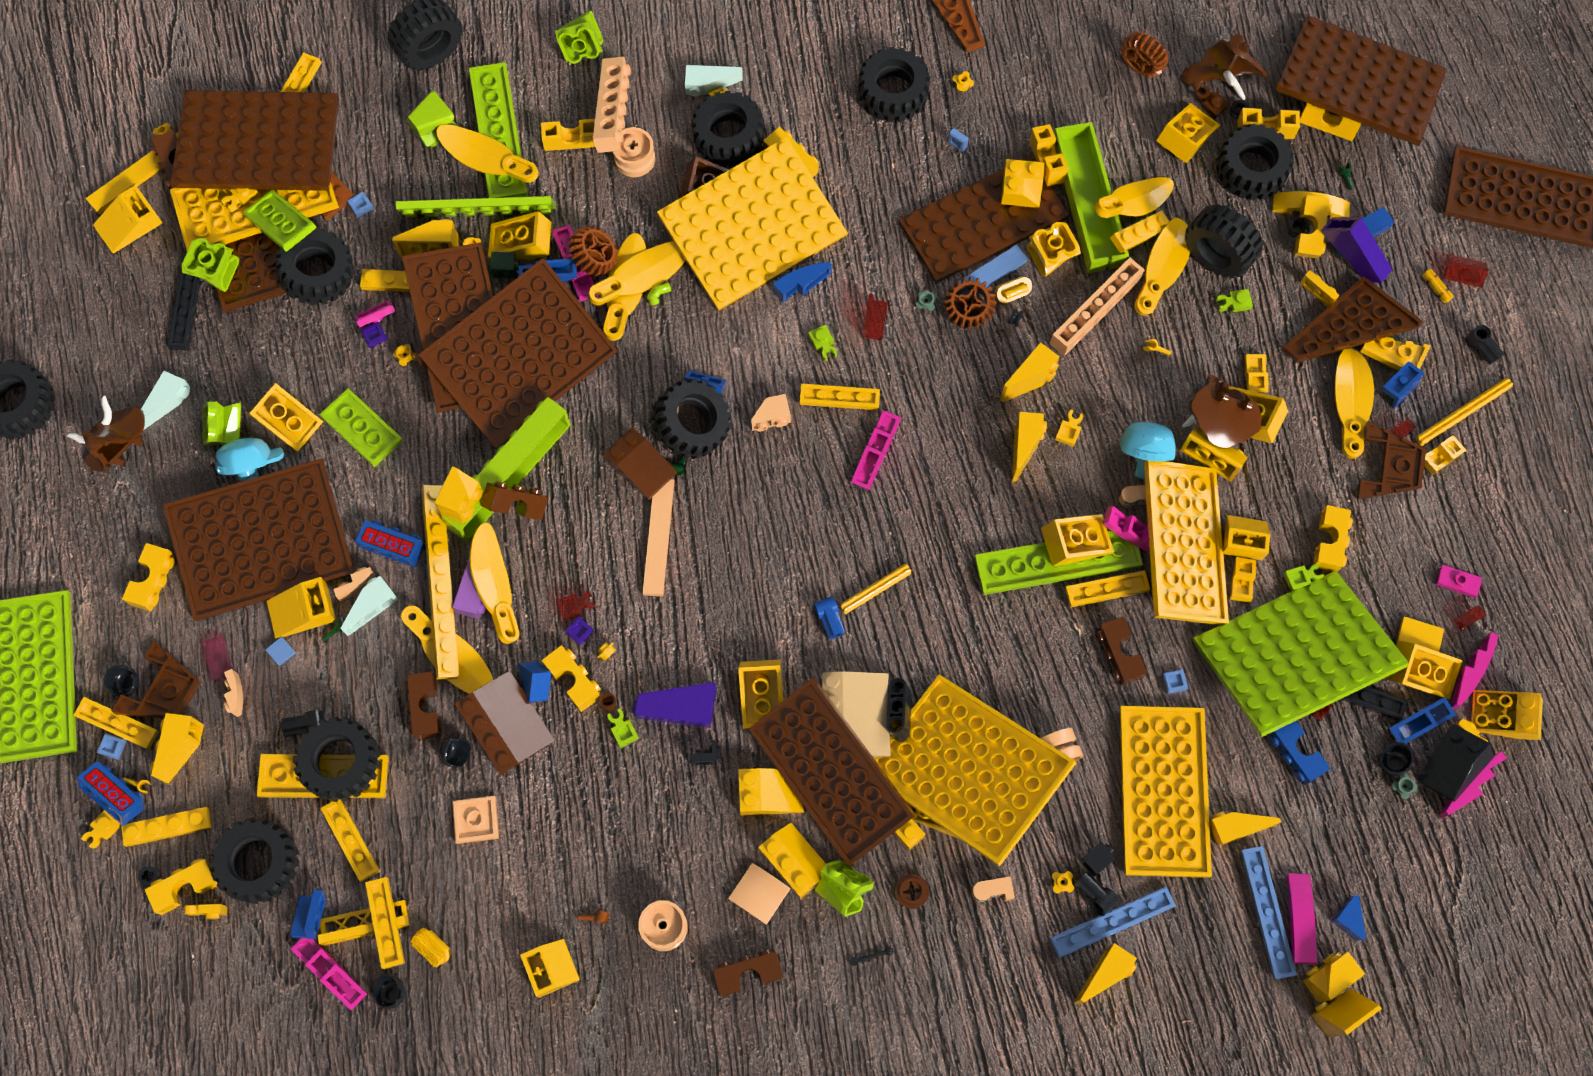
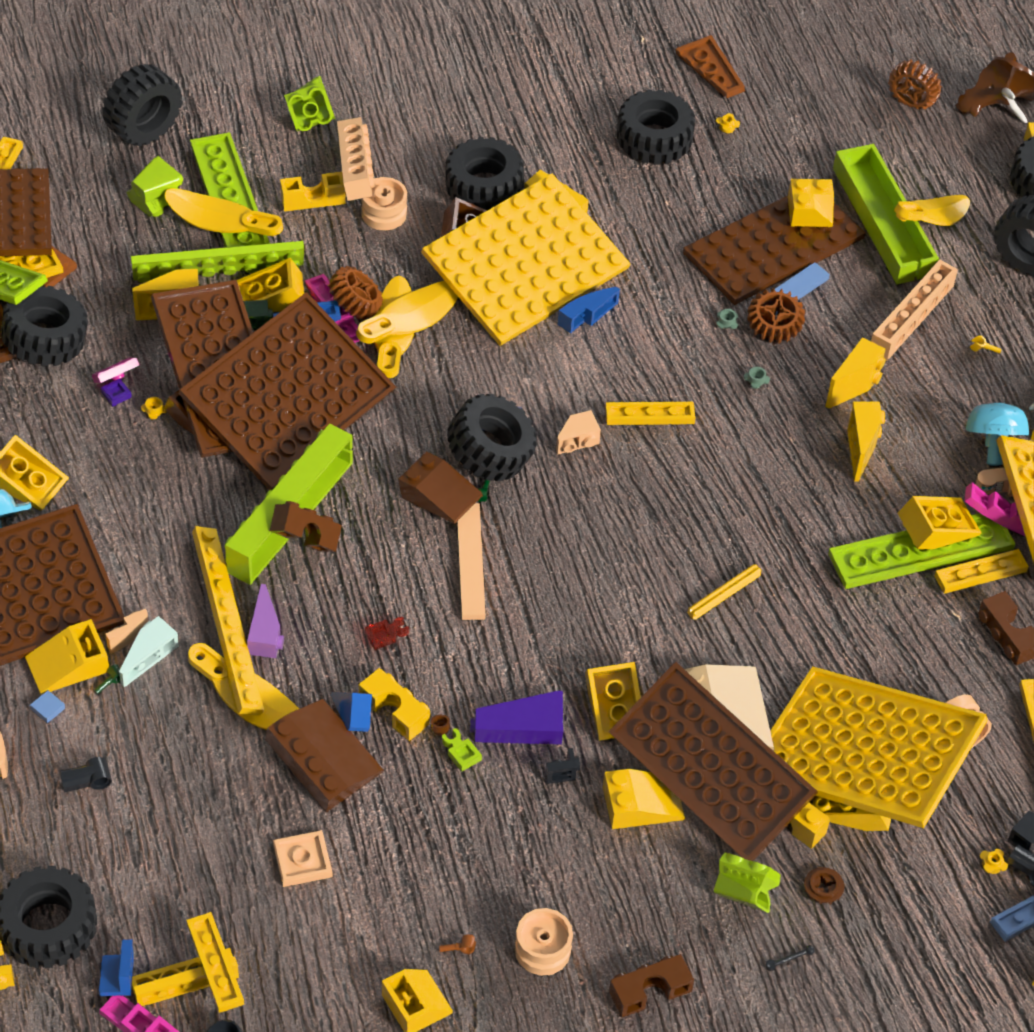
camera: 10 degrees left, 20 degrees down
(279, 779) = (115, 827): yellow plate -> none
(318, 740) = (135, 825): black tyre -> none
(350, 840) = (156, 889): yellow plate -> none
(360, 204) = (84, 272): medium blue tile -> none
(361, 427) = (113, 481): lime tile -> none
(384, 280) = (129, 340): yellow plate -> none
(390, 543) = (163, 588): blue brick -> none
(422, 724) = (229, 762): reddish brown arch -> none
(431, 947) = (269, 991): yellow piece -> none
(454, 751) = (269, 786): black hair -> none
(458, 496) = (246, 517): yellow slope -> none
(493, 582) = (288, 614): yellow plant -> none
(579, 631) = (394, 659): dark purple tile -> none
(606, 651) = (429, 674): yellow plate -> none
(656, 291) = (429, 330): lime arm -> none
(708, 78) = (446, 135): light aqua slope -> none
(759, 893) = (648, 903): light nougat slope -> none
(793, 860) = (680, 866): yellow slope -> none
(822, 340) = (621, 363): lime plate -> none
(828, 613) = (676, 617): blue piece -> none
(875, 319) = (674, 339): clear red panel -> none
(876, 450) = (700, 459): dark pink slope -> none
(903, 717) = (775, 701): black beam -> none
(943, 360) = (756, 377): none -> sand green plate
(958, 140) = (733, 173): medium blue tile -> none
(993, 888) = (917, 873): light nougat leg -> none
(1013, 289) = (820, 303): yellow piece -> none
(1015, 317) = (827, 327): black bush -> none
(1043, 146) = (825, 166): yellow arch -> none
(1052, 247) = (854, 259): yellow piece -> none
(1069, 430) = (907, 426): yellow plate -> none
(1139, 232) = (946, 238): yellow plate -> none
(1163, 265) = (976, 271): yellow plant -> none
(1187, 132) = (973, 153): yellow slope -> none
(1213, 104) = (993, 127): reddish brown plate -> none
(1238, 103) = (1018, 127): black bush -> none

